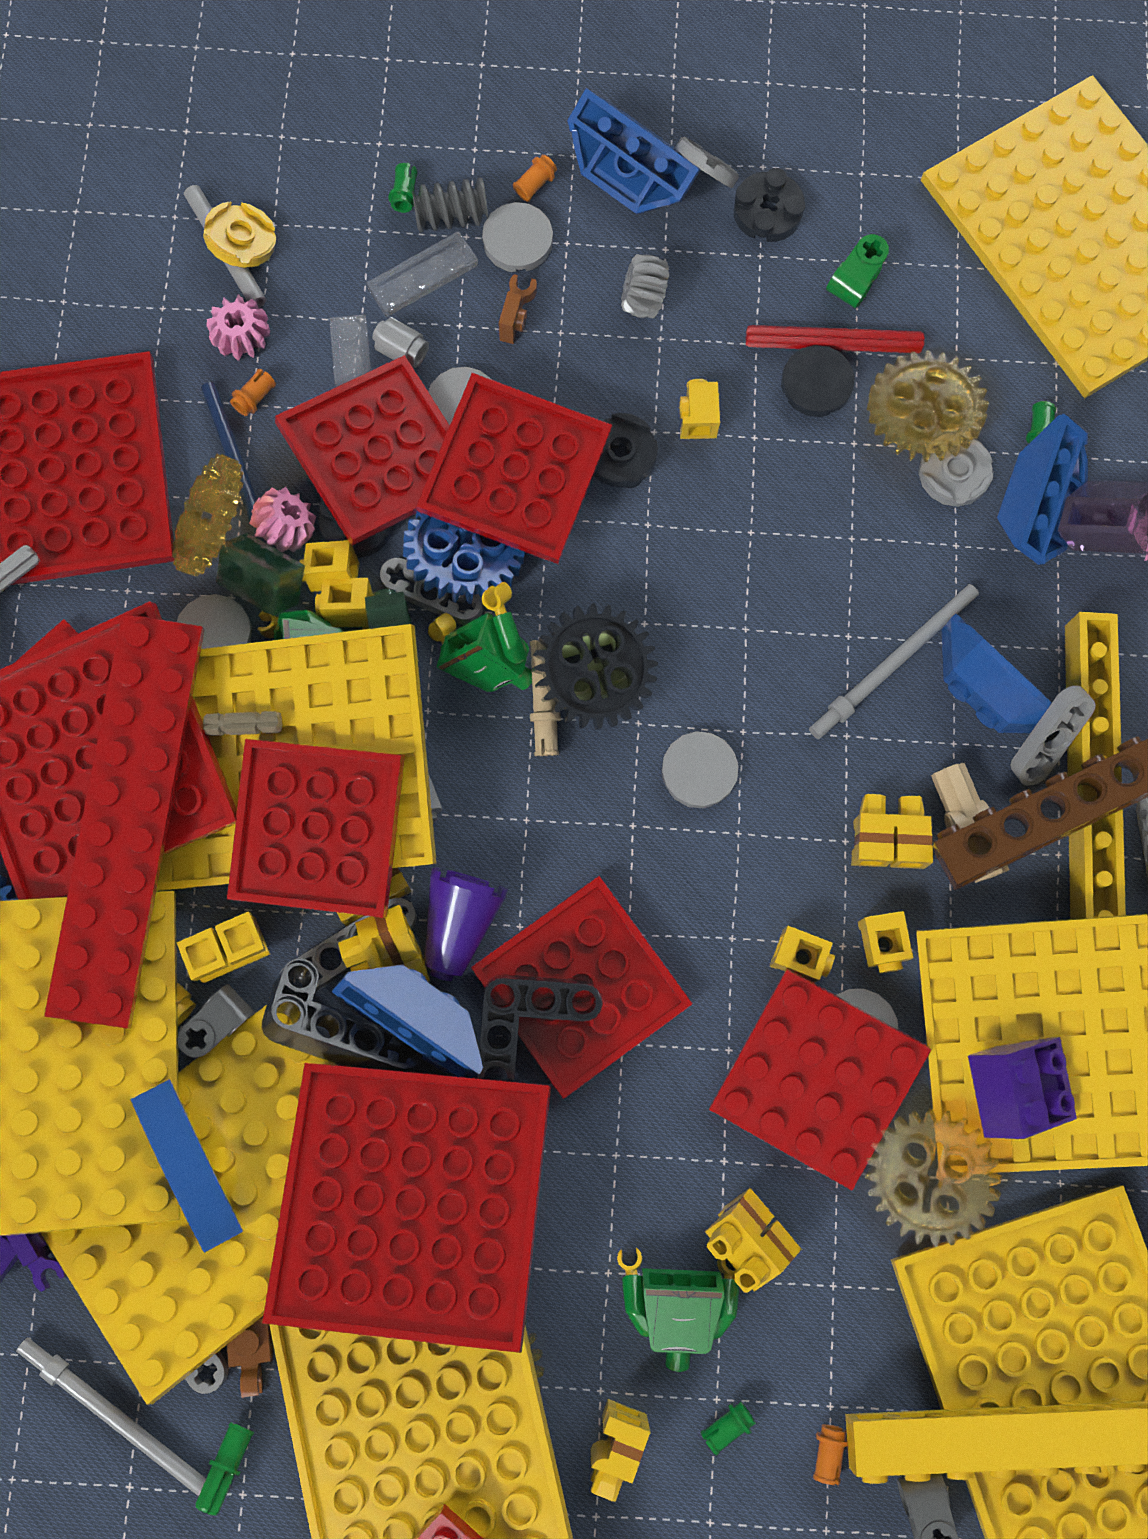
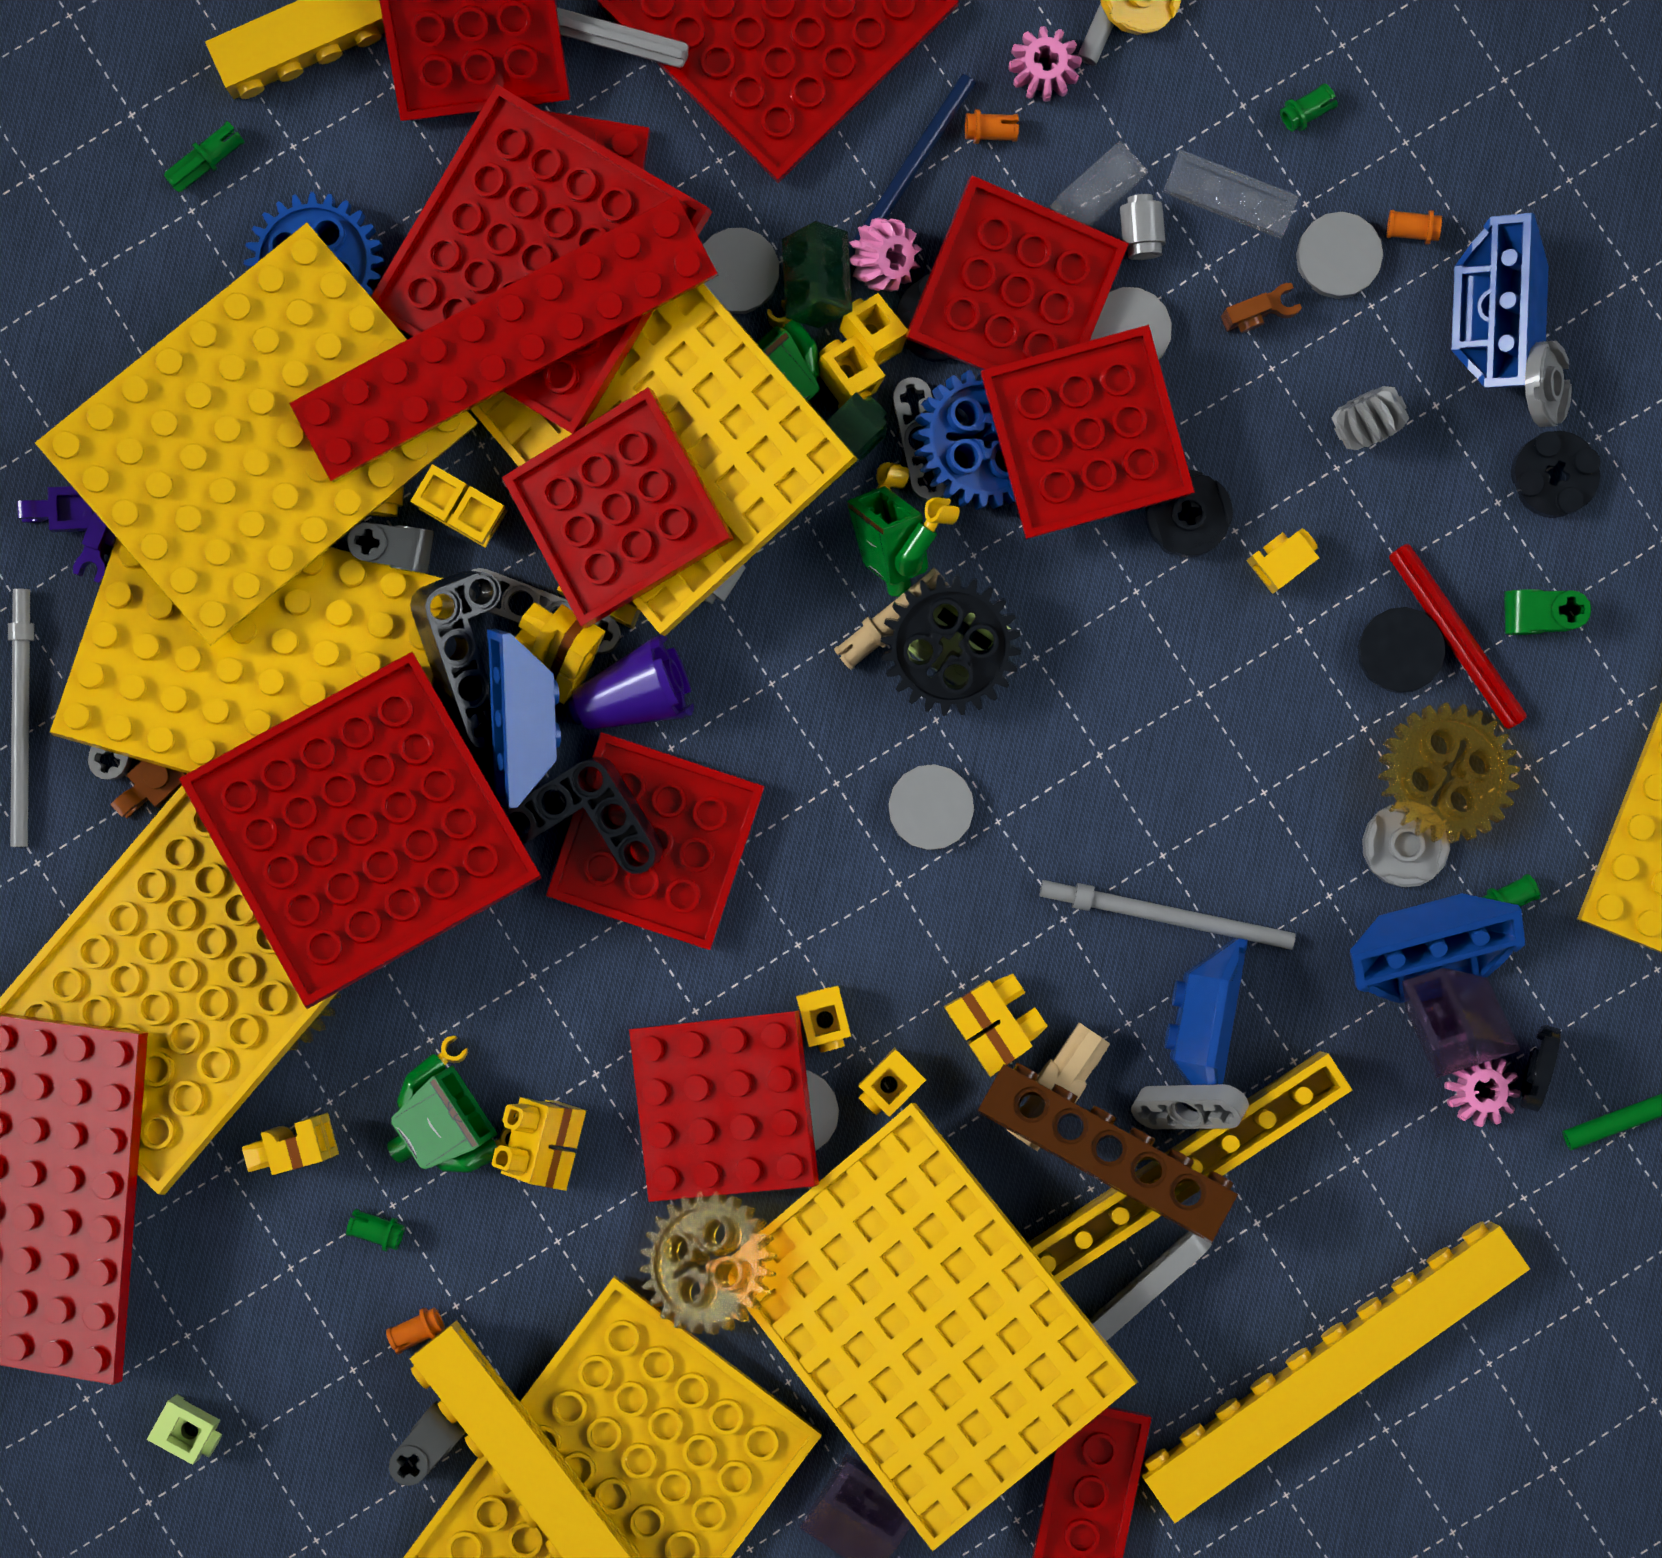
camera: 55 degrees right, 10 degrees up
(186, 1166) = (256, 617): blue slope -> none
(215, 493) = (832, 187): clear yellow gear -> none
(223, 1469) = (46, 832): green axle -> none
(242, 723) = (661, 373): dark tan axle -> none
(450, 204) = (1319, 167): dark grey piece -> none
(1022, 1088) = (835, 1286): dark purple slope -> none

